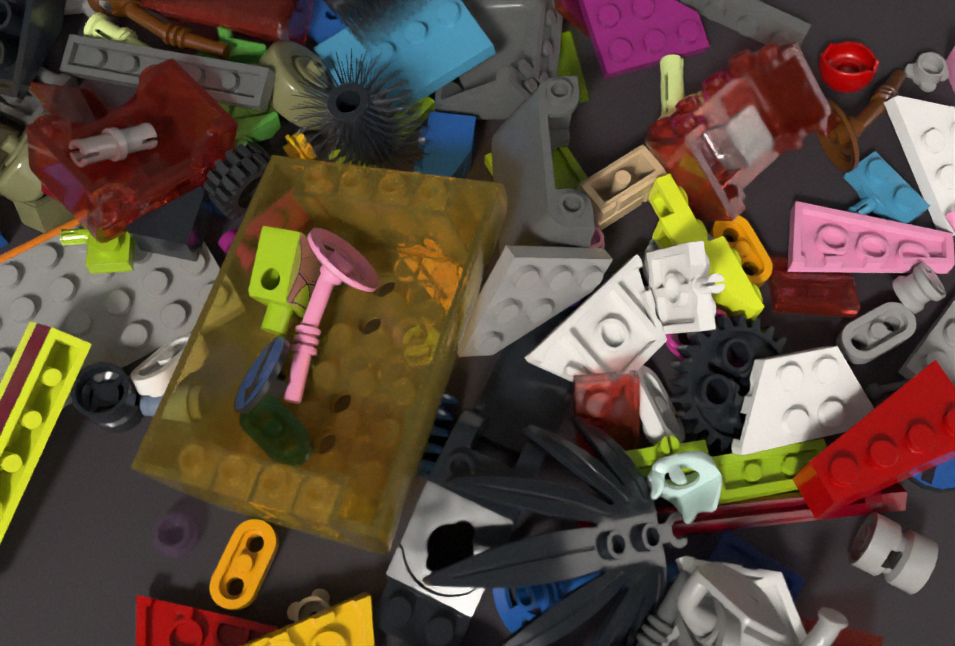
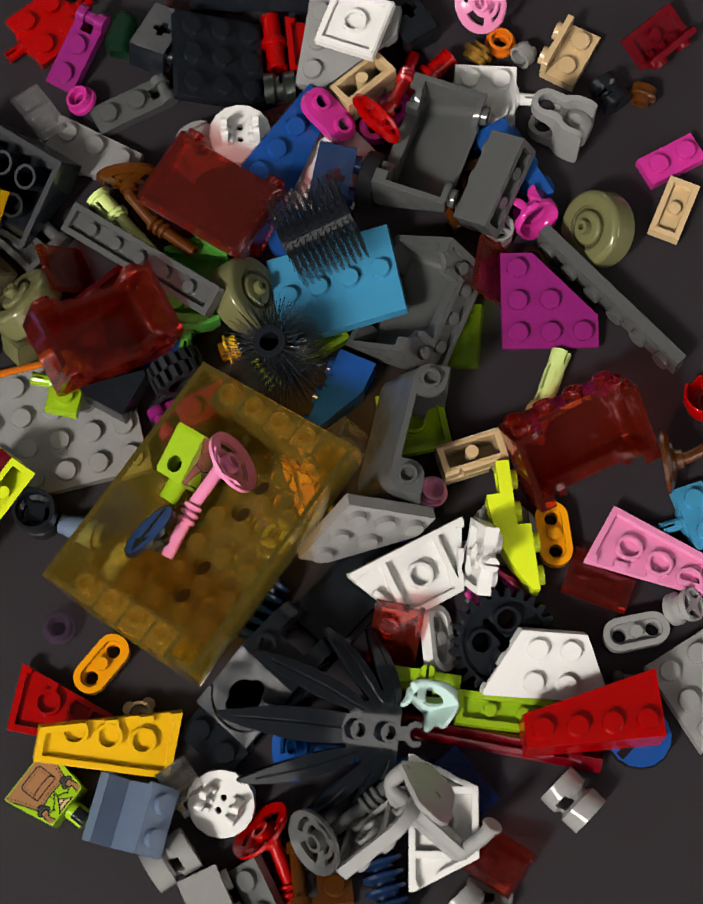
camera: 25 degrees right, 5 degrees up
(112, 144) = (87, 318): light grey pin -> none
(156, 371) = (78, 503): white plate -> none
(279, 433) = (149, 579): clear green plate -> none
(740, 139) = (581, 444): clear panel -> none

